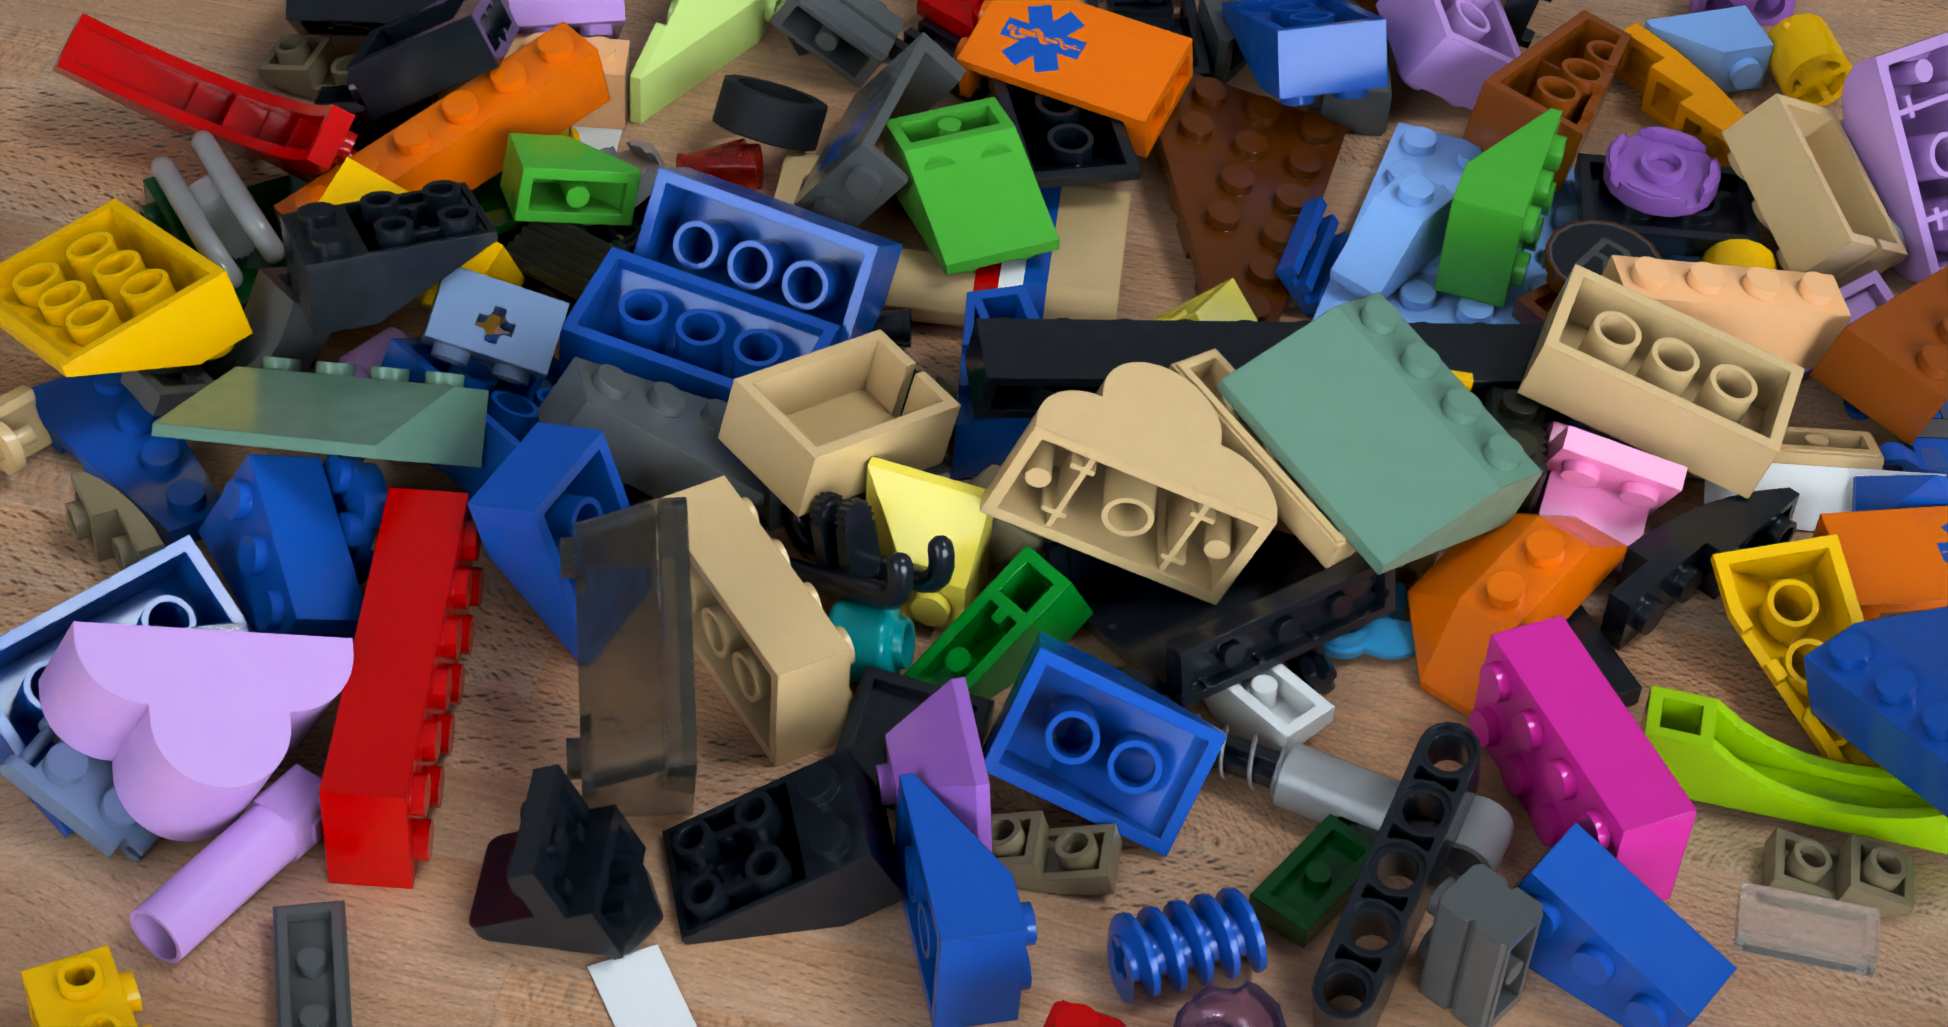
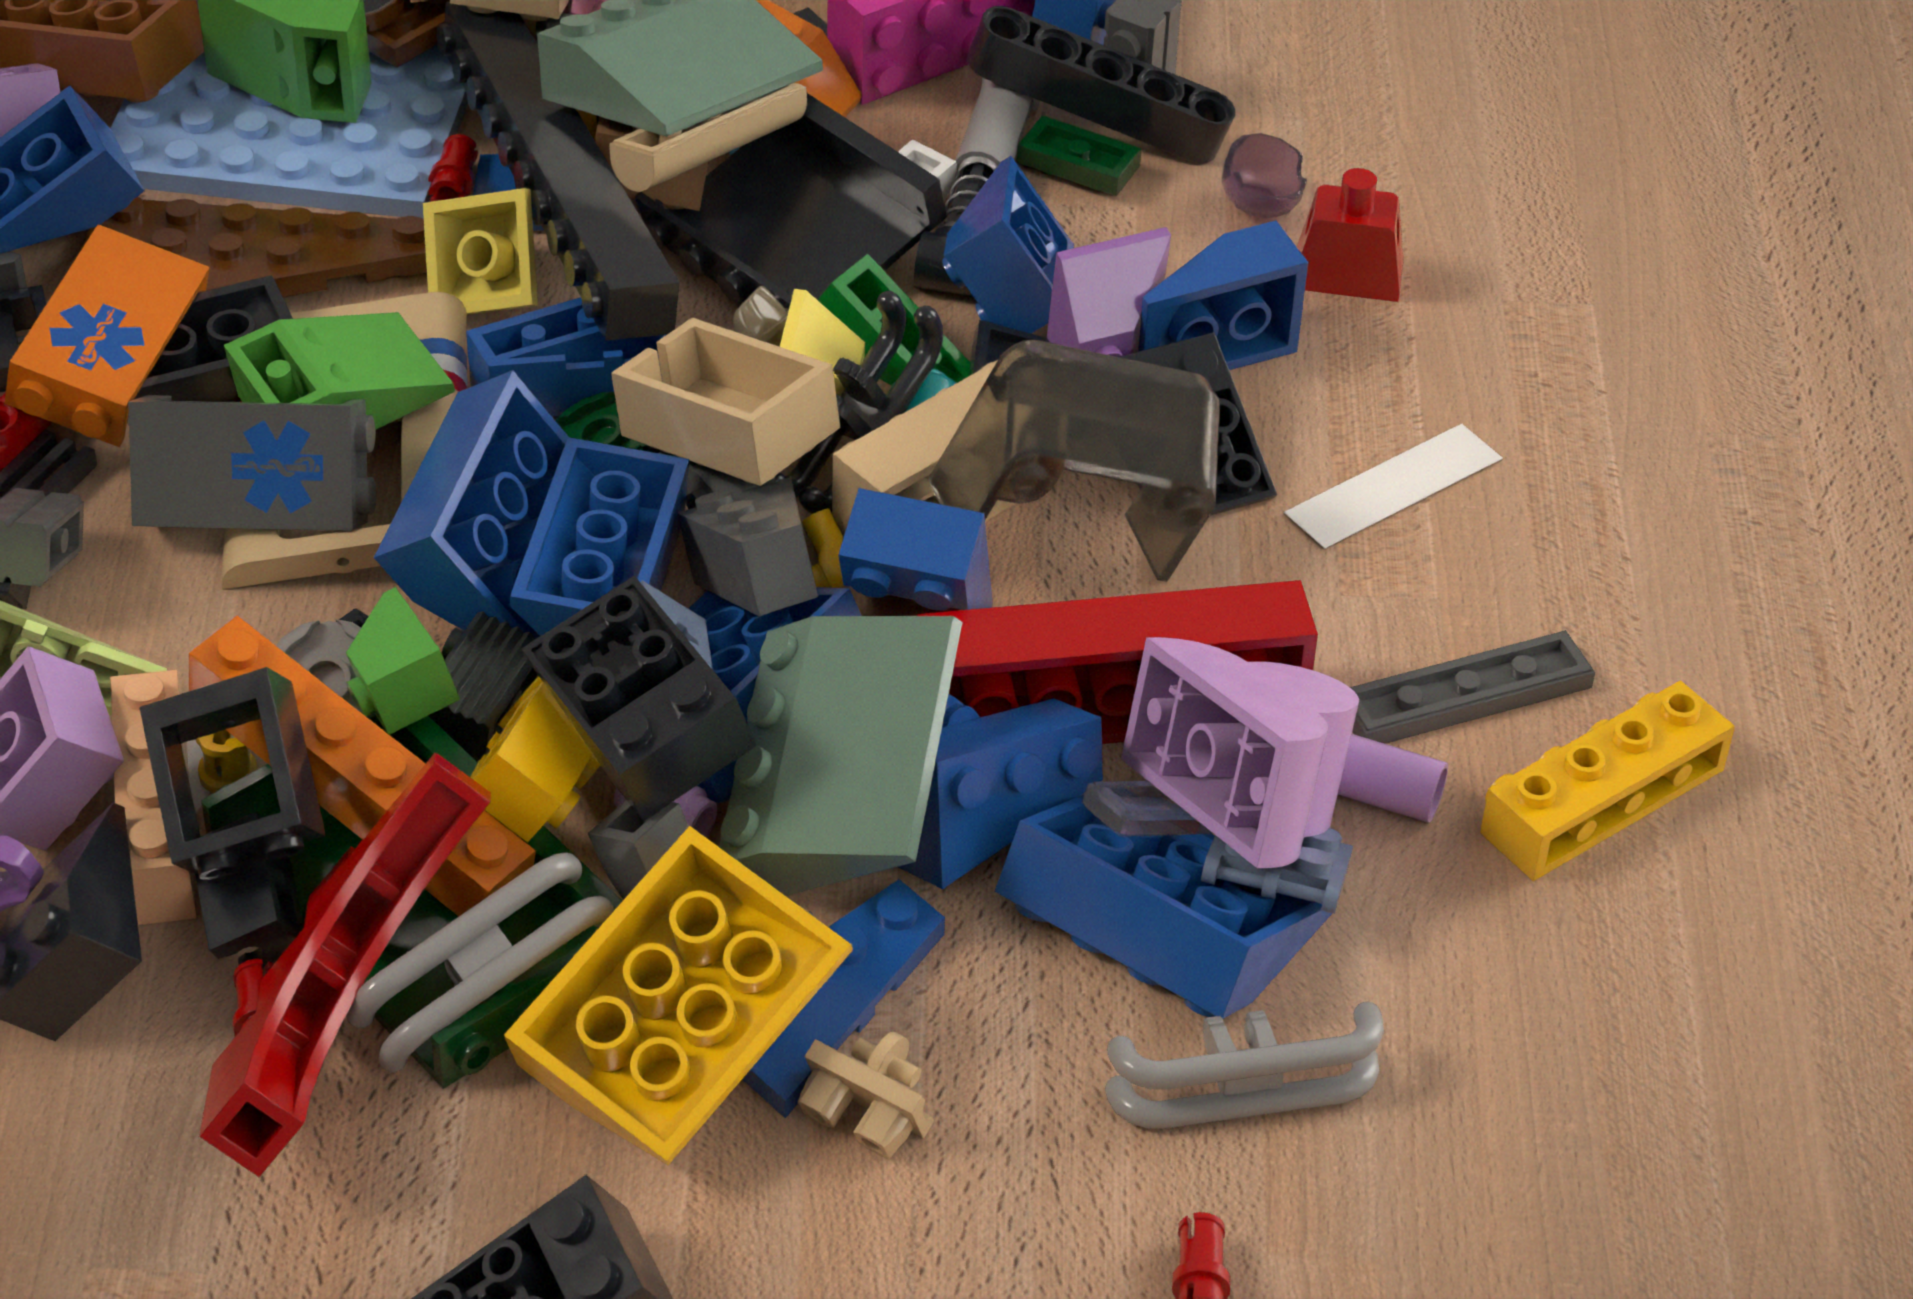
camera: 100 degrees left, 0 degrees up
(110, 522) = (955, 957): dark tan slope -> none
(304, 65) = (151, 994): dark tan slope -> none
(566, 877) = (1280, 539): black piece -> none
(729, 161) = (268, 601): clear red cone -> none
(770, 113) = (194, 569): black tyre -> none
(1138, 482) = (753, 202): tan brick -> none
(1184, 939) = (1182, 200): blue piece -> none
(1315, 262) = (318, 197): blue tile -> none
(1394, 236) = (317, 126): light blue slope -> none

